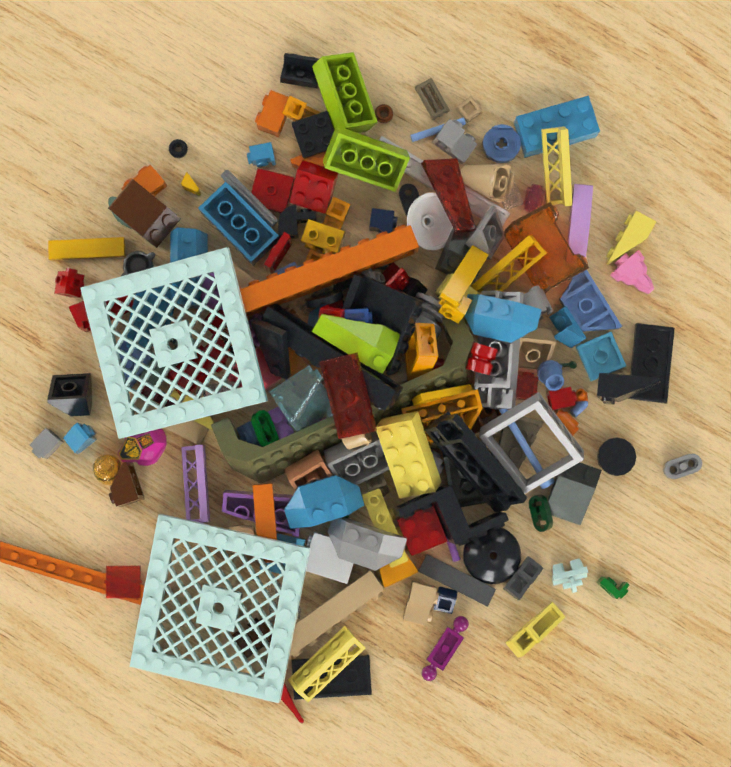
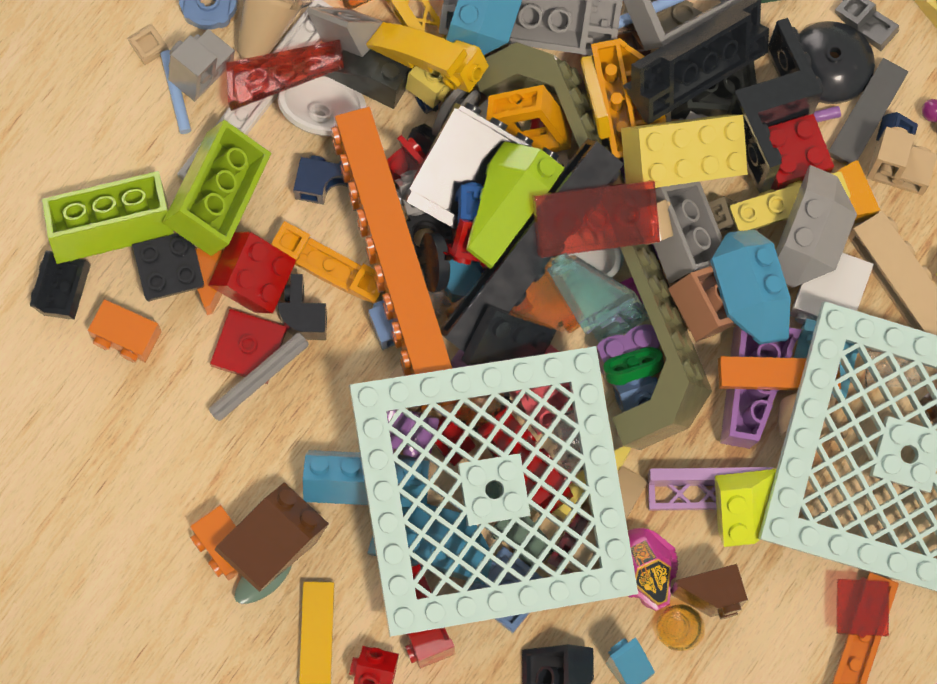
camera: 90 degrees left, 10 degrees down
(137, 261) = (353, 556): dark grey hair -> none
(176, 143) = (161, 479): black plate -> none
(181, 503) = (742, 505): none -> neon yellow slope
(189, 185) = (227, 469): yellow slope -> none
(239, 223) = (299, 393): dark azure brick -> none
(261, 155) = (190, 354): dark azure brick -> none
(278, 253) = (353, 334): red plate -> none
(297, 109) = (125, 290): light orange slope -> none
(322, 237) = (333, 265): yellow brick -> none
(384, 108) = (141, 160): dark orange plate -> none
(406, 200) = (286, 140): black plate -> none
(438, 112) = (130, 106): dark tan tile -> none
(481, 358) = (546, 33): red wheel -> none

